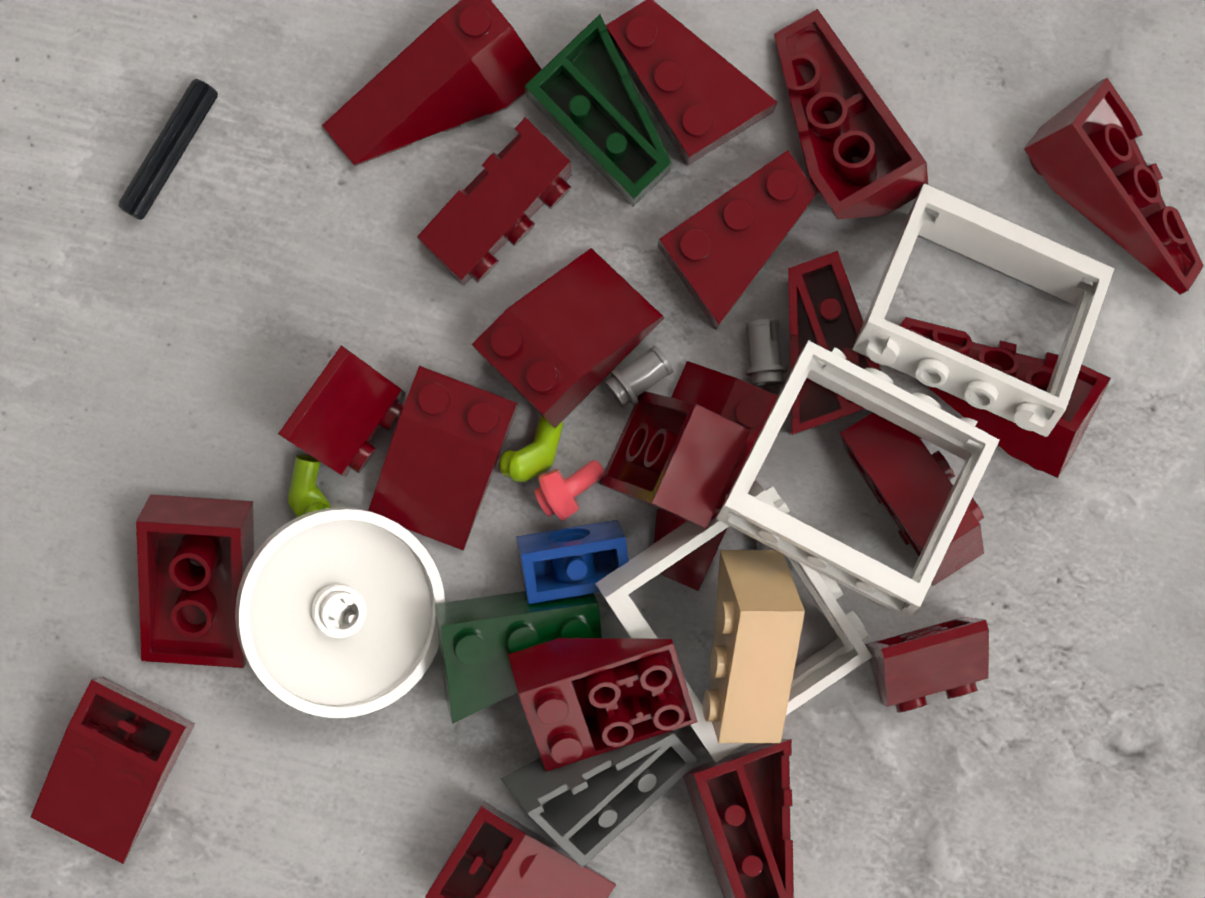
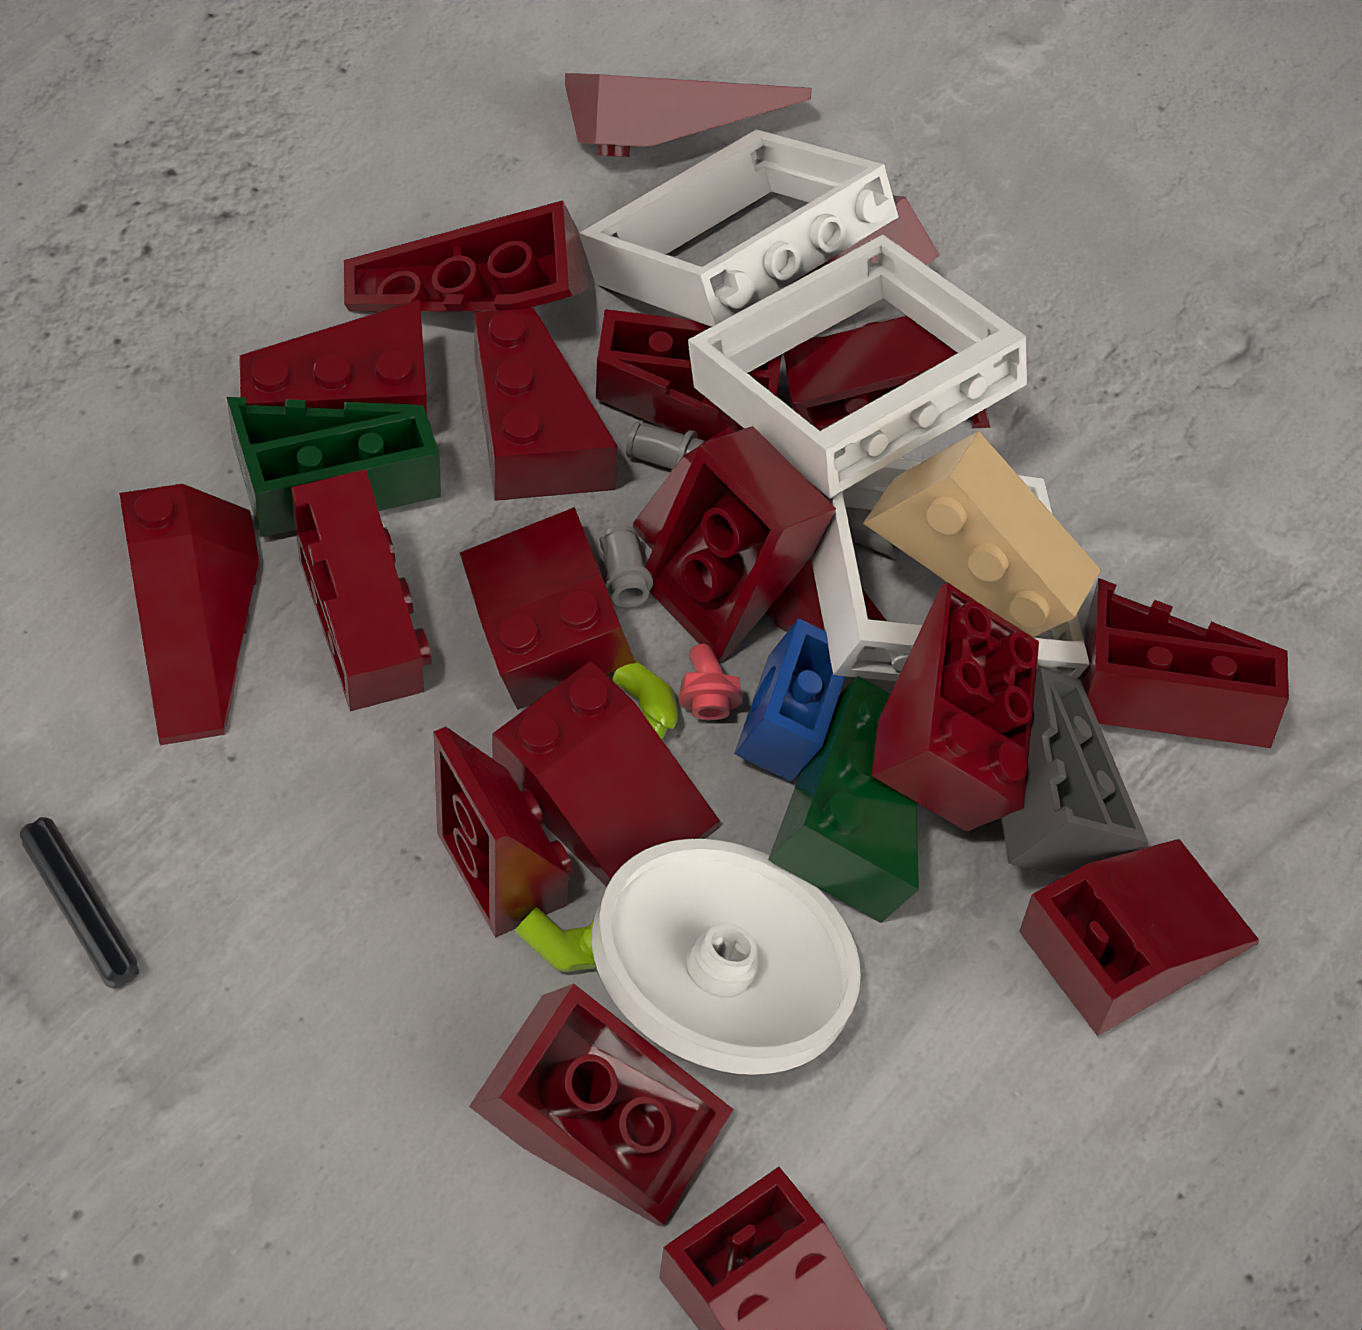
camera: 65 degrees left, 30 degrees down
(931, 661) = (1076, 424): dark red slope -> none

